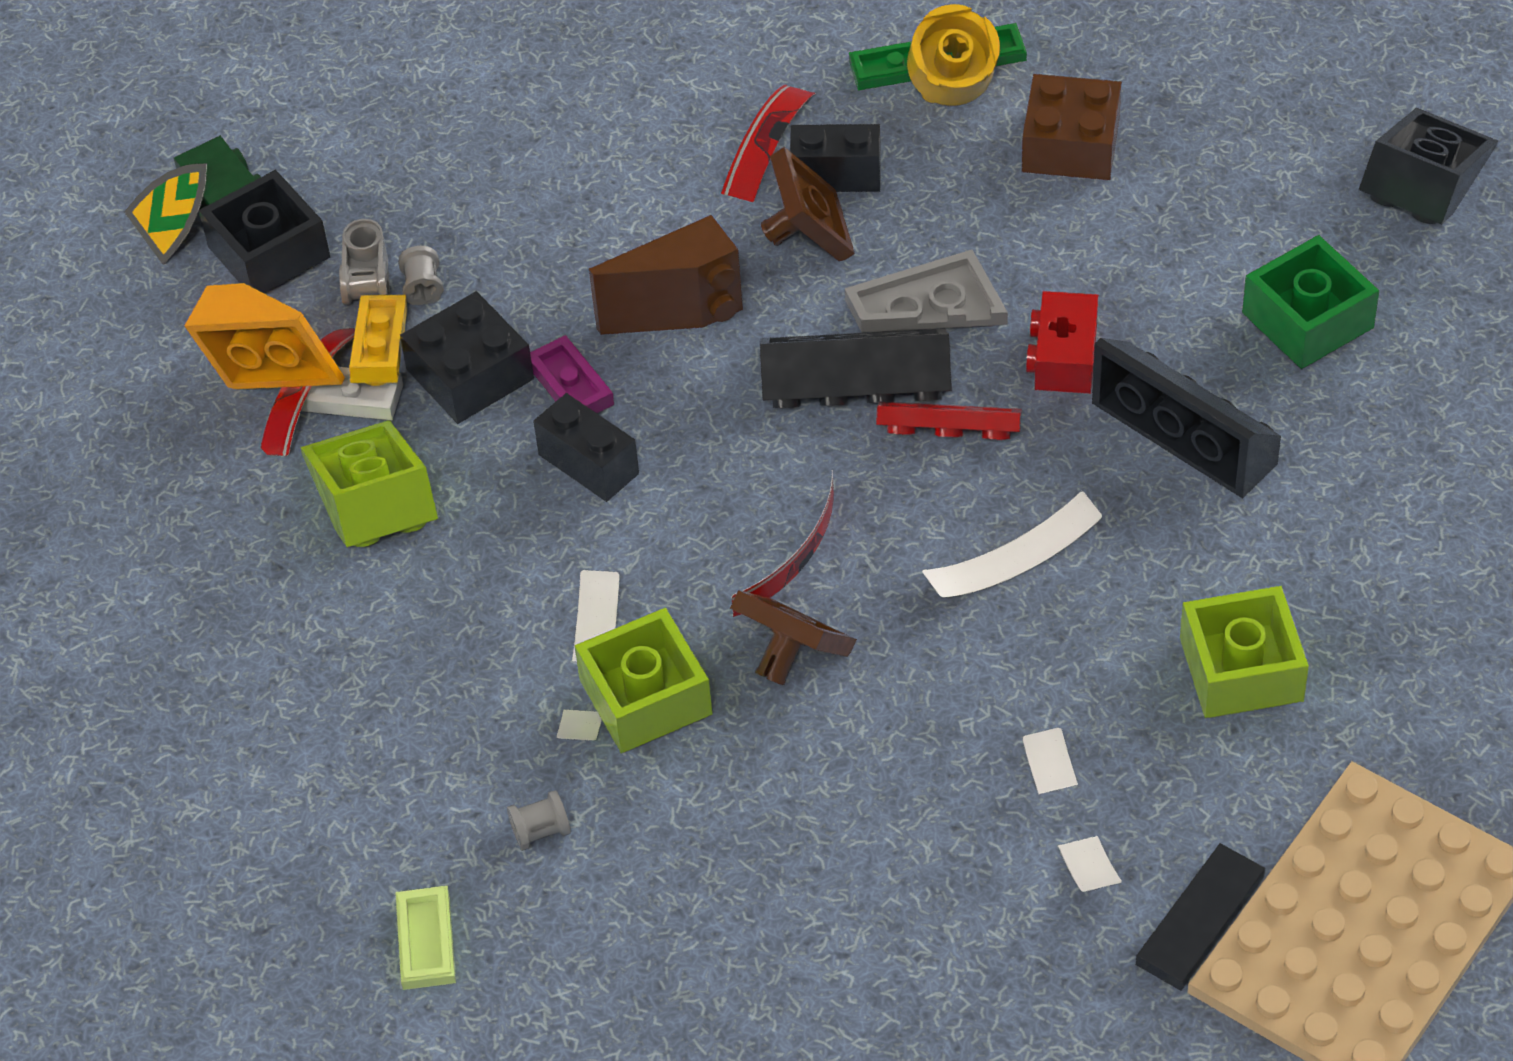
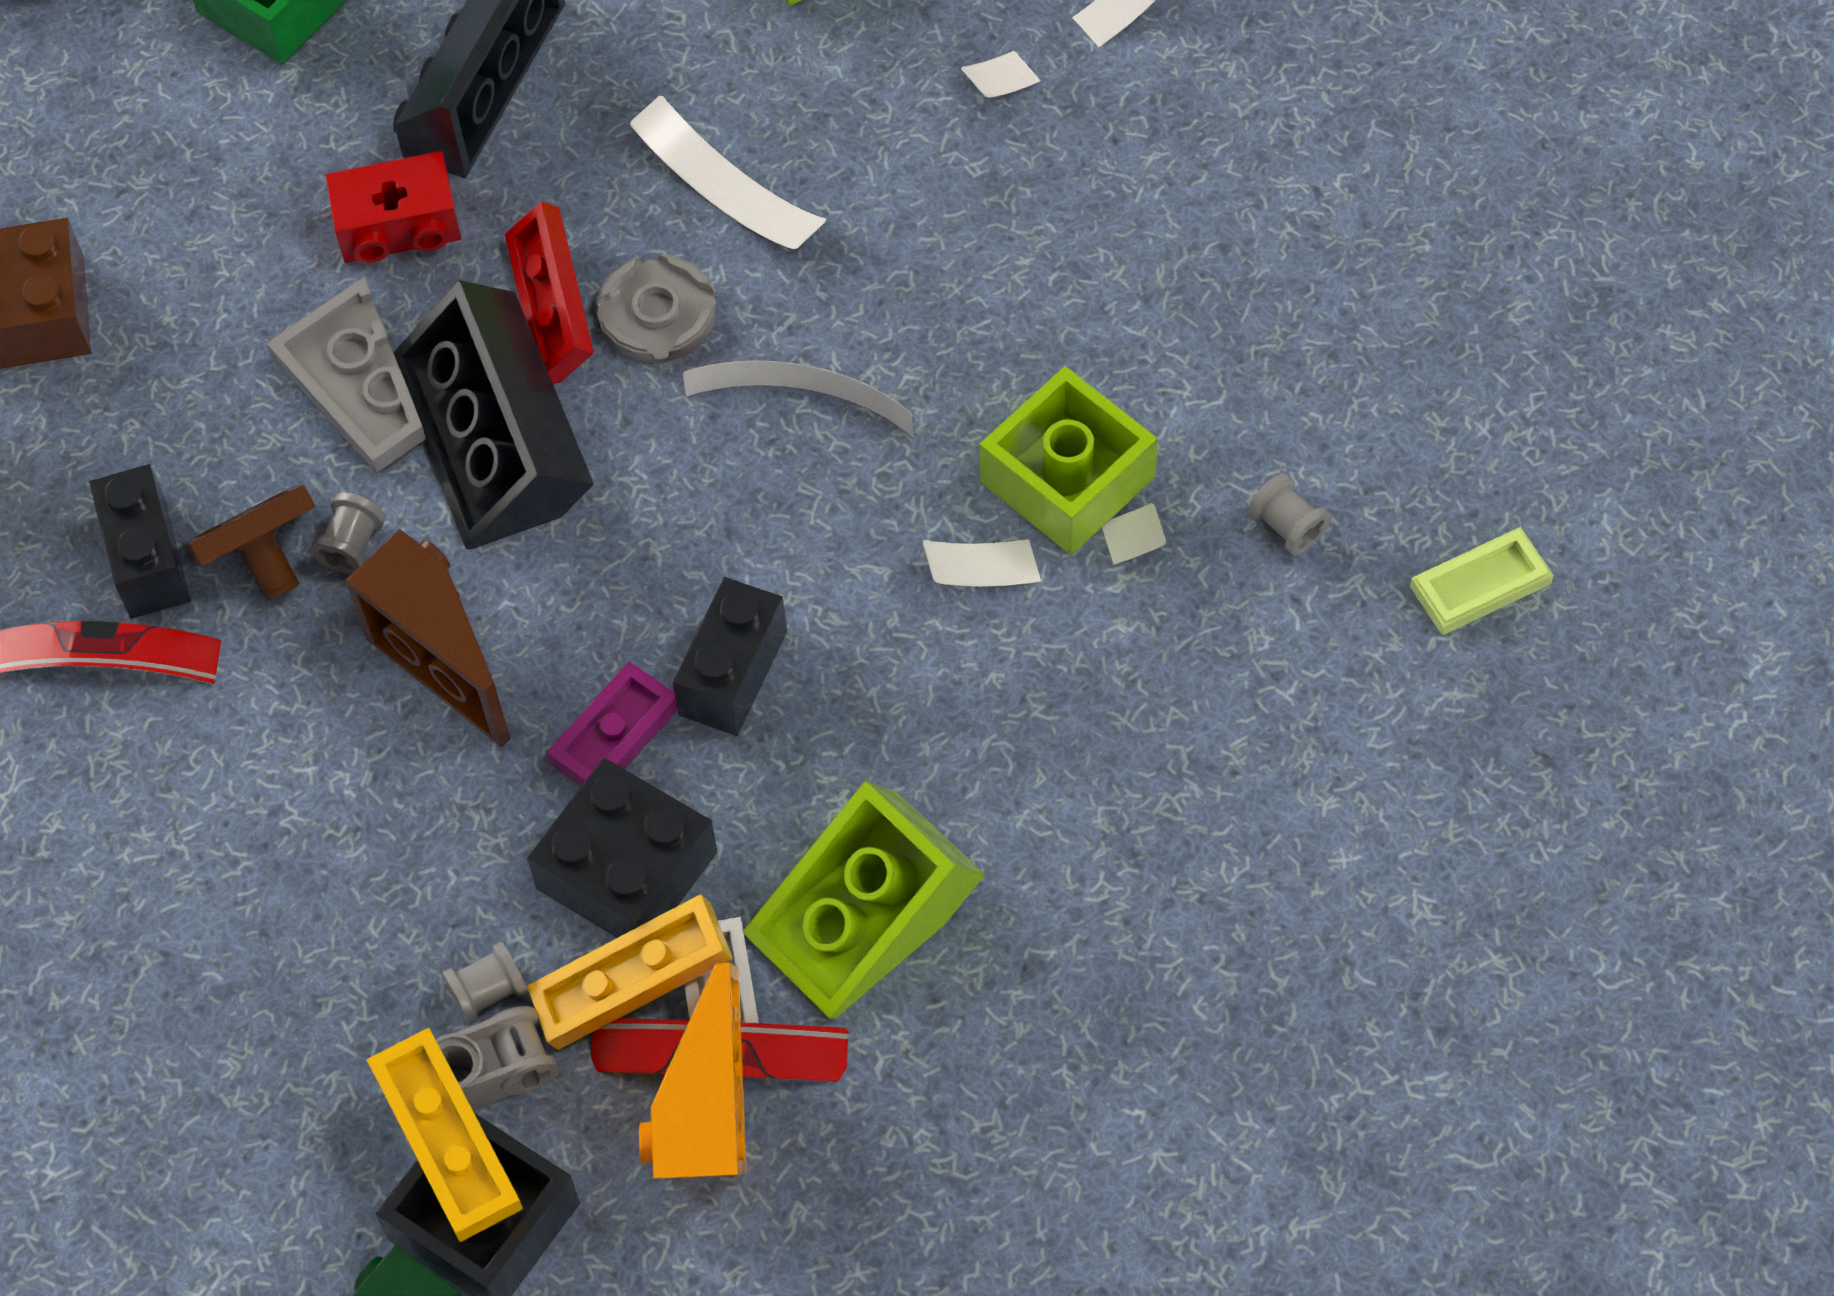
camera: 110 degrees left, 10 degrees up
(296, 197) = (444, 1134): none -> yellow plate
(790, 632) = (938, 333): reddish brown tile -> none
(794, 269) = (347, 532): none -> light grey bush
(915, 500) = (660, 325): none -> light grey tile

